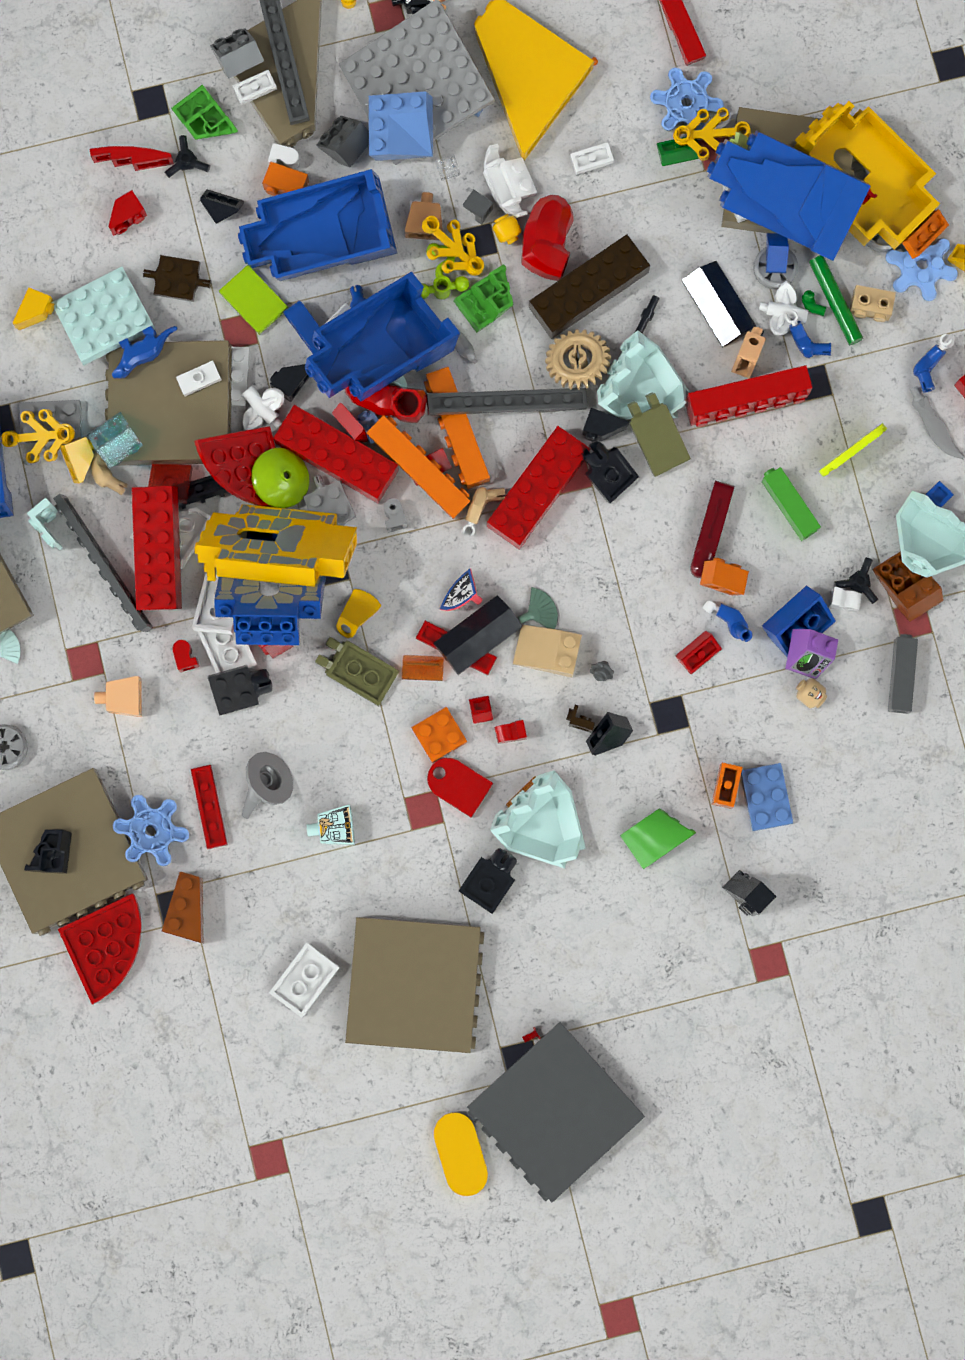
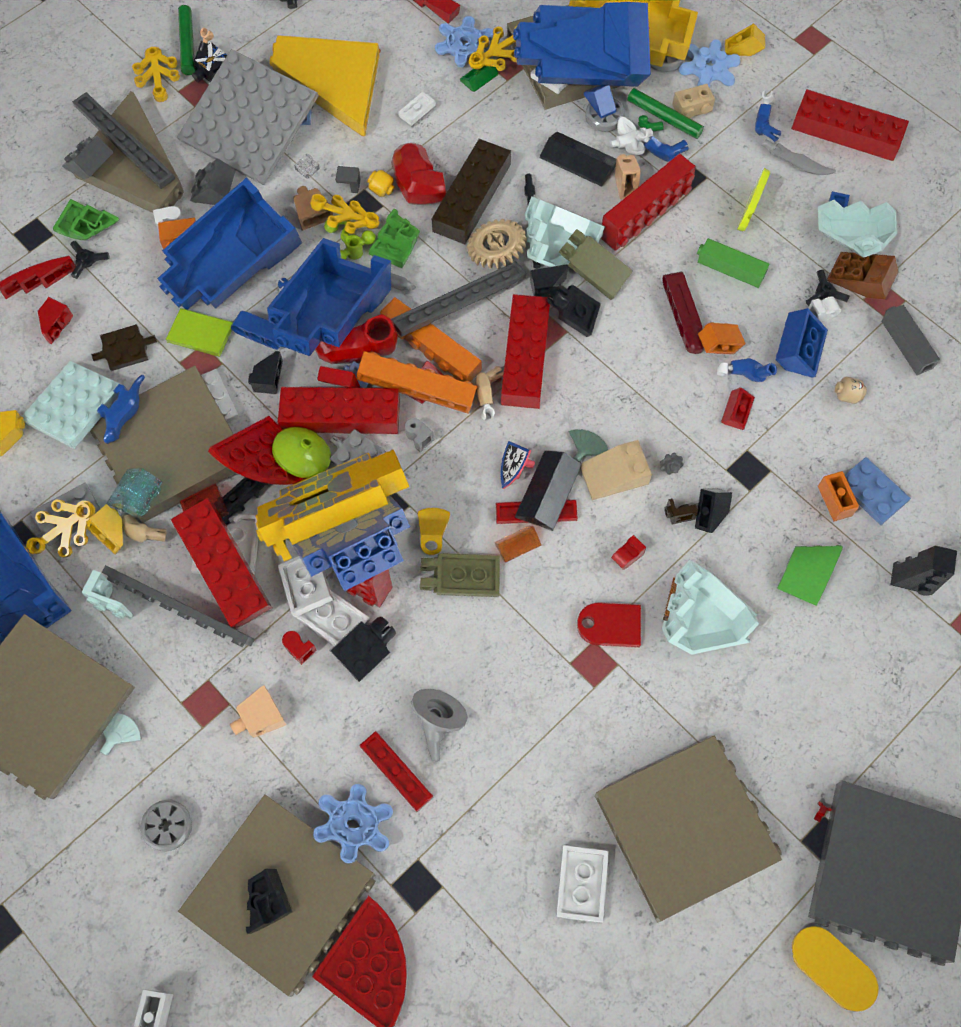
camera: 30 degrees left, 15 degrees down
(186, 909) = (429, 881): dark orange wedge -> none
(198, 378) = (184, 406): white plate -> none
(220, 205) = (133, 278): black slope -> none
(254, 87) = (115, 175): white plate -> none
(262, 408) = (255, 406): white plant -> none
(334, 827) = (524, 722): torso -> none
(401, 126) = (252, 146): medium blue slope -> none
(439, 734) = (567, 591): orange plate -> none
(481, 709) = (590, 550): red slope -> none
(489, 880) = (693, 690): black plate -> none
(508, 181) = (361, 152): white plate -> none
(810, 652) = (829, 356): medium lavender slope -> none
(925, 233) = (700, 39): orange plate -> none

